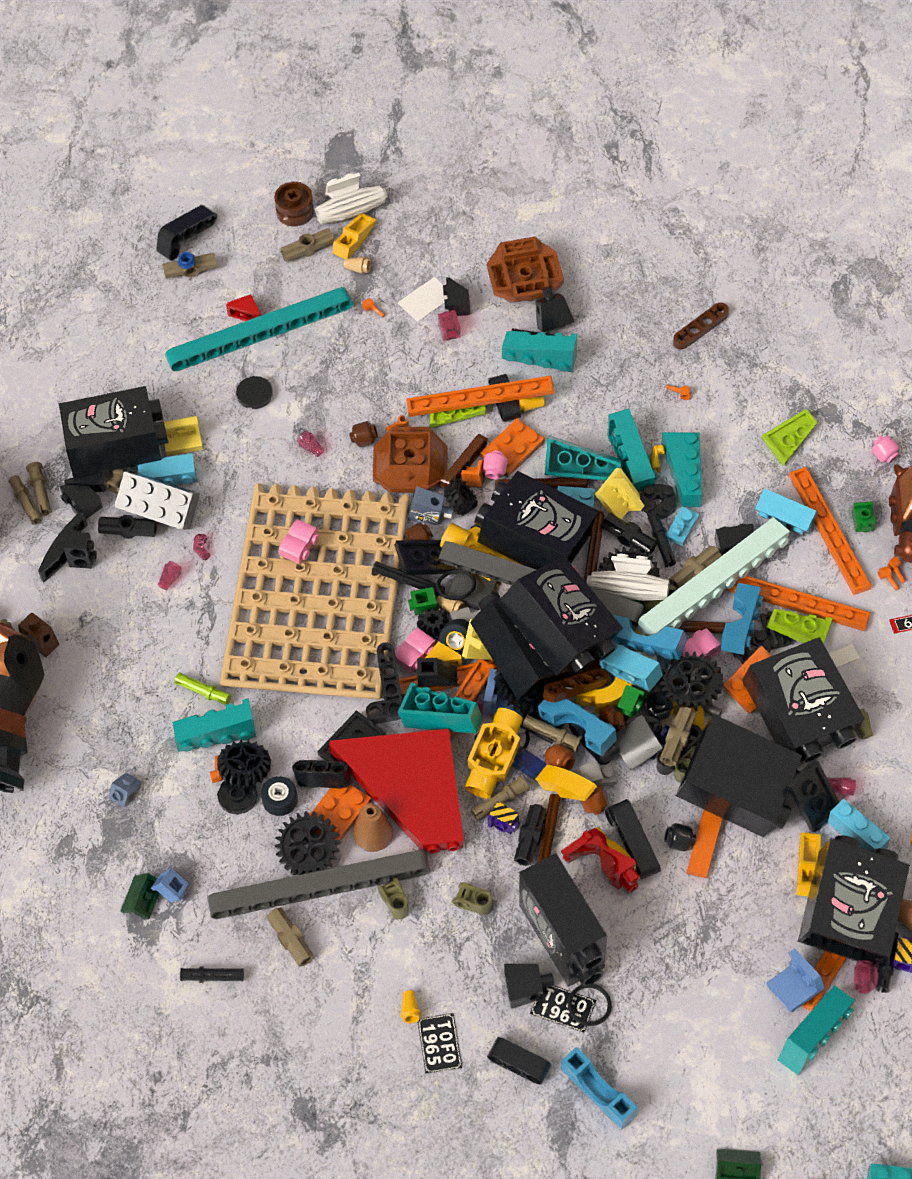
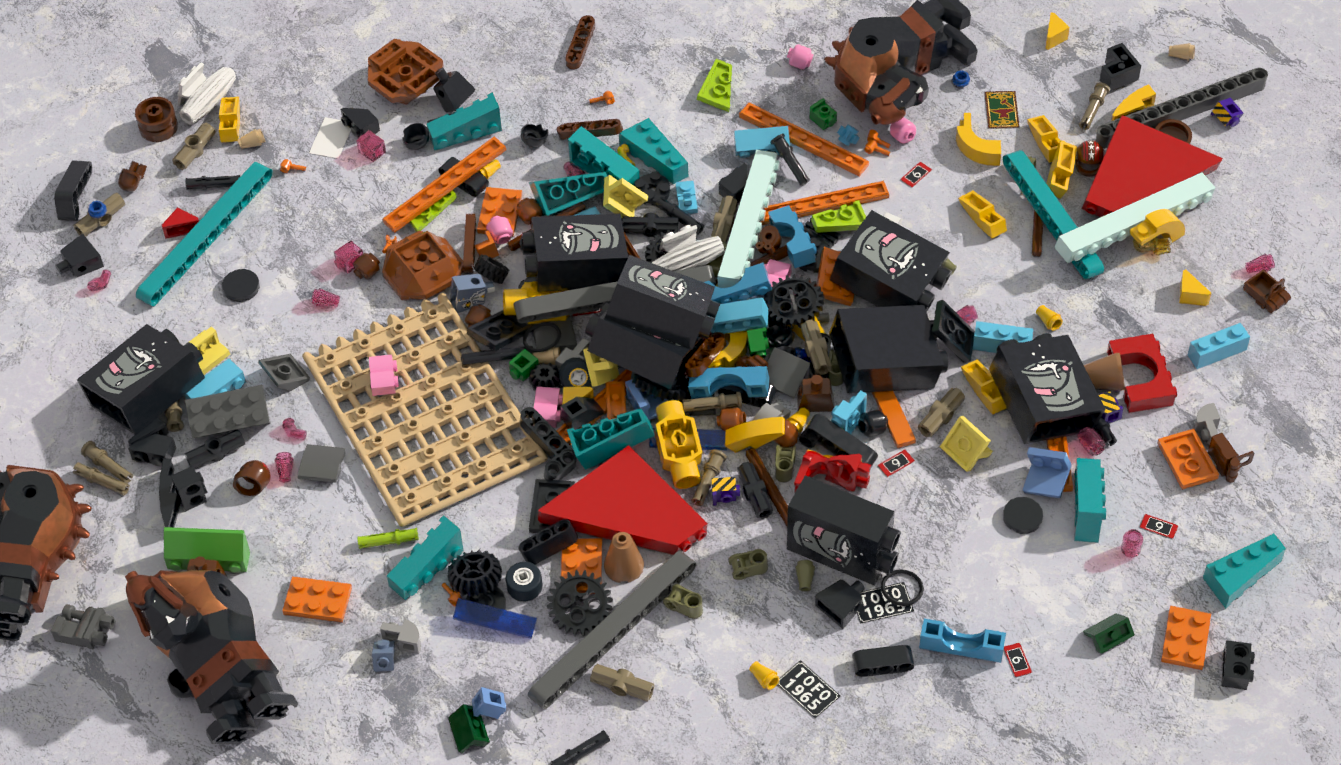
camera: 35 degrees left, 5 degrees down
(55, 610) = (223, 545): none -> bright green slope
(111, 707) = (317, 599): none -> orange plate
(139, 566) = (255, 473): none -> reddish brown helmet
(147, 295) = (79, 257): none -> black torso
(149, 327) = (101, 282): none -> clear pink arm
(152, 782) = (405, 635): none -> light grey brick
(200, 590) = (321, 463): none -> dark grey slope
(230, 490) = (284, 371): none -> dark grey slope
(231, 814) = (495, 618): none -> clear blue tile
(236, 246) = (130, 178): none -> reddish brown piece
(293, 283) = (210, 182): none -> black pin
(353, 415) = (346, 256): none -> clear pink brick
(491, 337) = (415, 136): none -> black hair
(514, 938) = (805, 573): none -> olive cone
(534, 461) = (528, 208): none -> dark orange head
(577, 822) = (784, 463): none -> olive piece
(591, 392) = (534, 135): none -> black hair
(601, 444) = (572, 170): none -> clear pink cone
(618, 793) = (799, 418): none -> yellow cone
(639, 1136) = (1017, 659): none -> sticker
(649, 781) = (816, 394): none -> reddish brown torso
(656, 819) = (848, 414): none -> medium azure plate
(657, 422) = (597, 128): none -> reddish brown beam
(674, 886) = (896, 463): none -> sticker
(719, 610) = (769, 240): none -> reddish brown piece
(745, 909) = (966, 444): none -> light yellow bracket
(748, 1006) = (1023, 515): none -> black tile
(749, 864) = (941, 412): none -> dark tan piece
(797, 534) = (786, 152): none -> black pin
(822, 1097) = (1132, 543): none -> clear pink brick
(866, 1096) = (1159, 526): none -> sticker
(870, 550) = (848, 135): none -> dark azure gear

